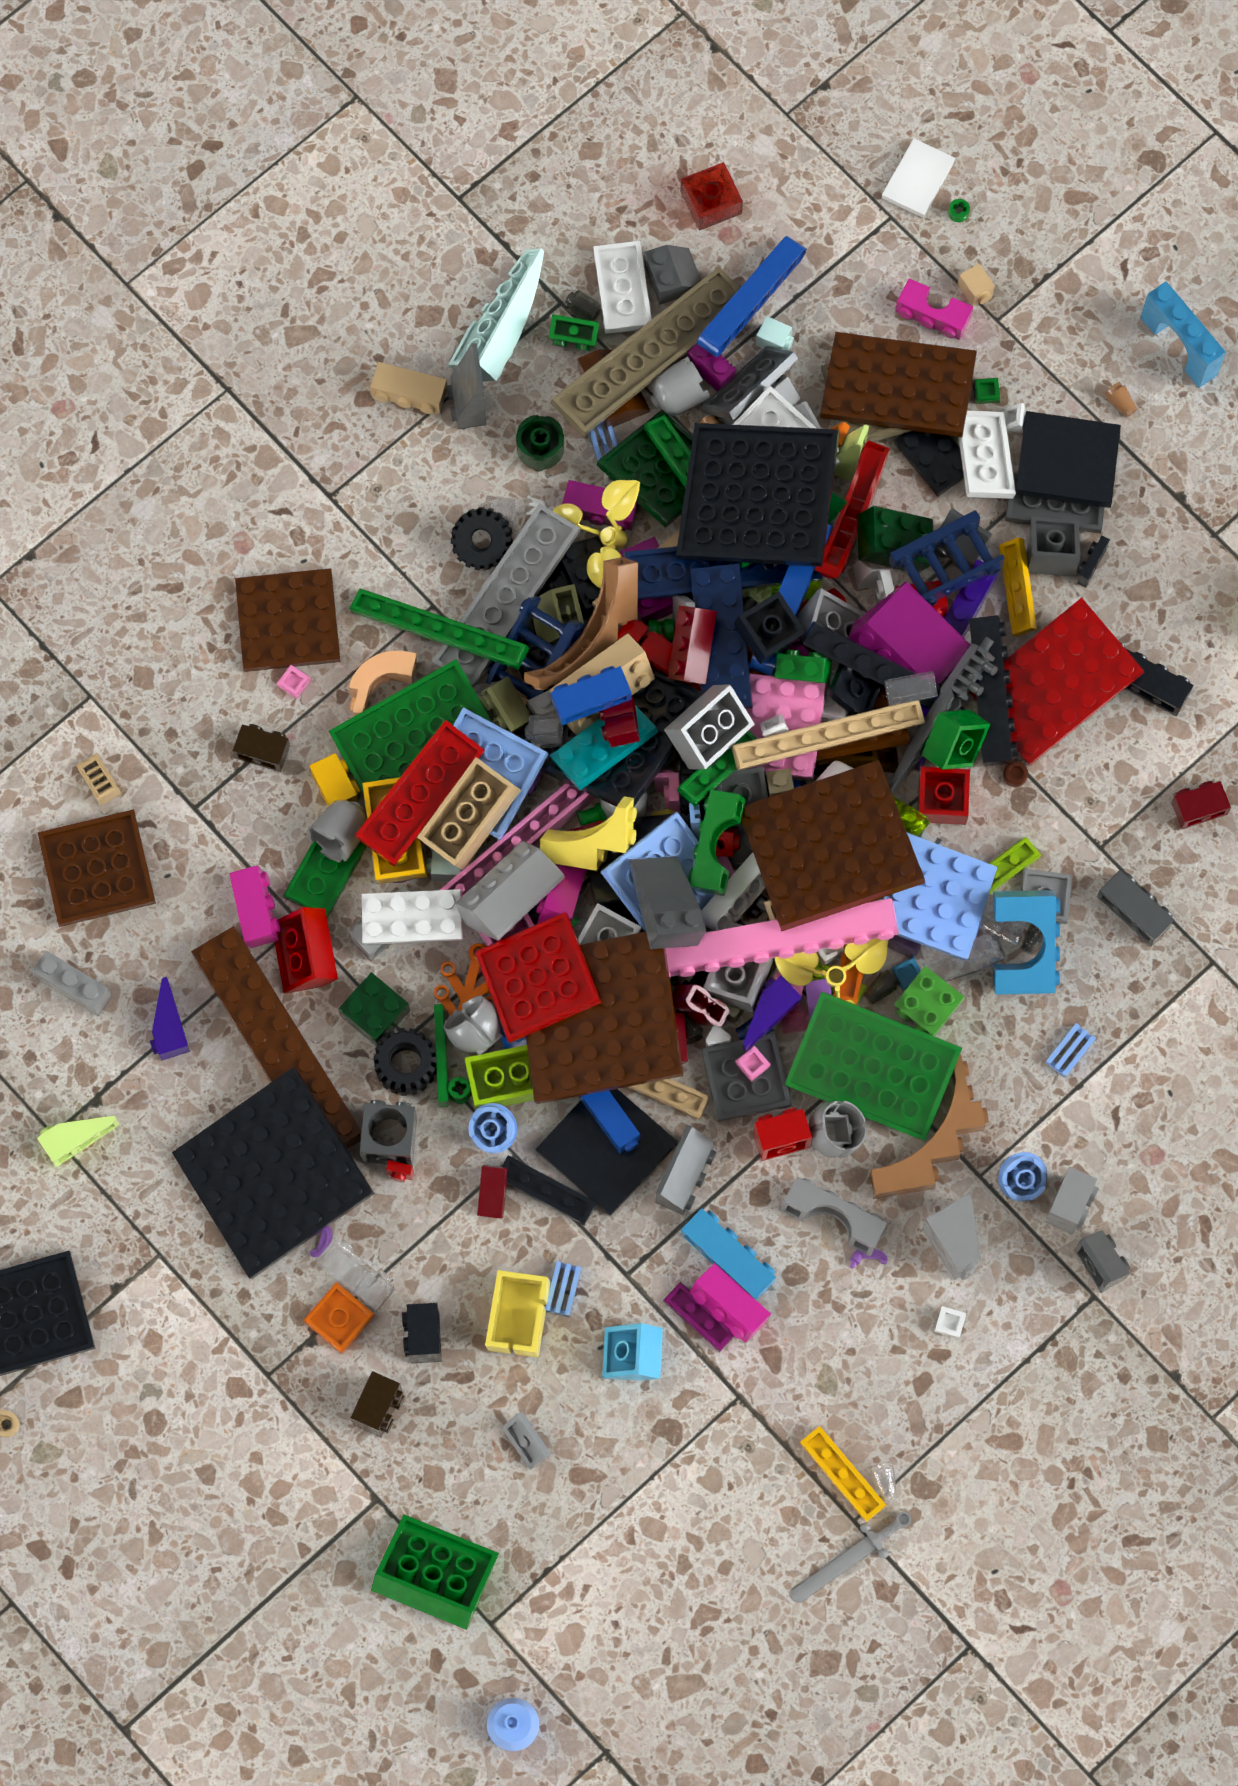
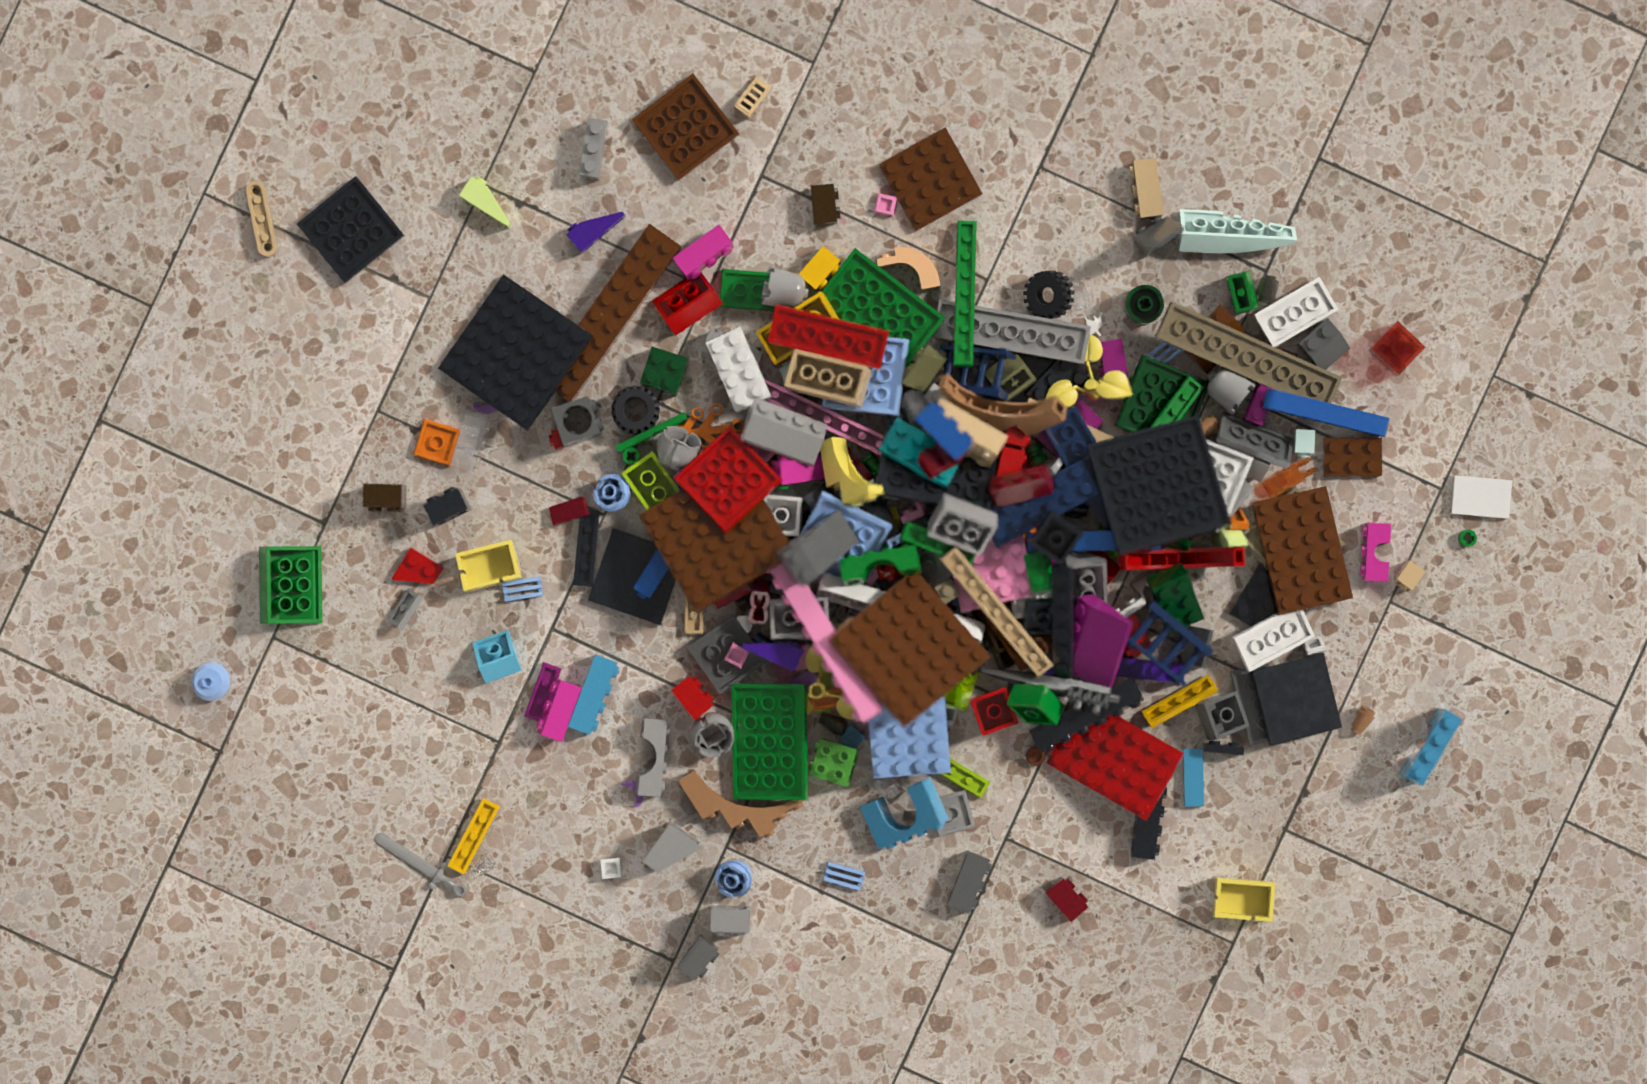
camera: 70 degrees right, 15 degrees up
(483, 1406) = (417, 568): none -> red wing
(685, 1171) = (638, 640): slope -> none
(774, 726) = (986, 570): white slope -> none
(808, 372) = (1287, 479): none -> clear orange hinge
(814, 293) = (1352, 456): none -> reddish brown plate
(911, 688) = (1057, 657): clear tile -> none
(986, 391) = (1328, 617): green tile -> none
(1116, 609) = (1193, 777): none -> dark azure tile

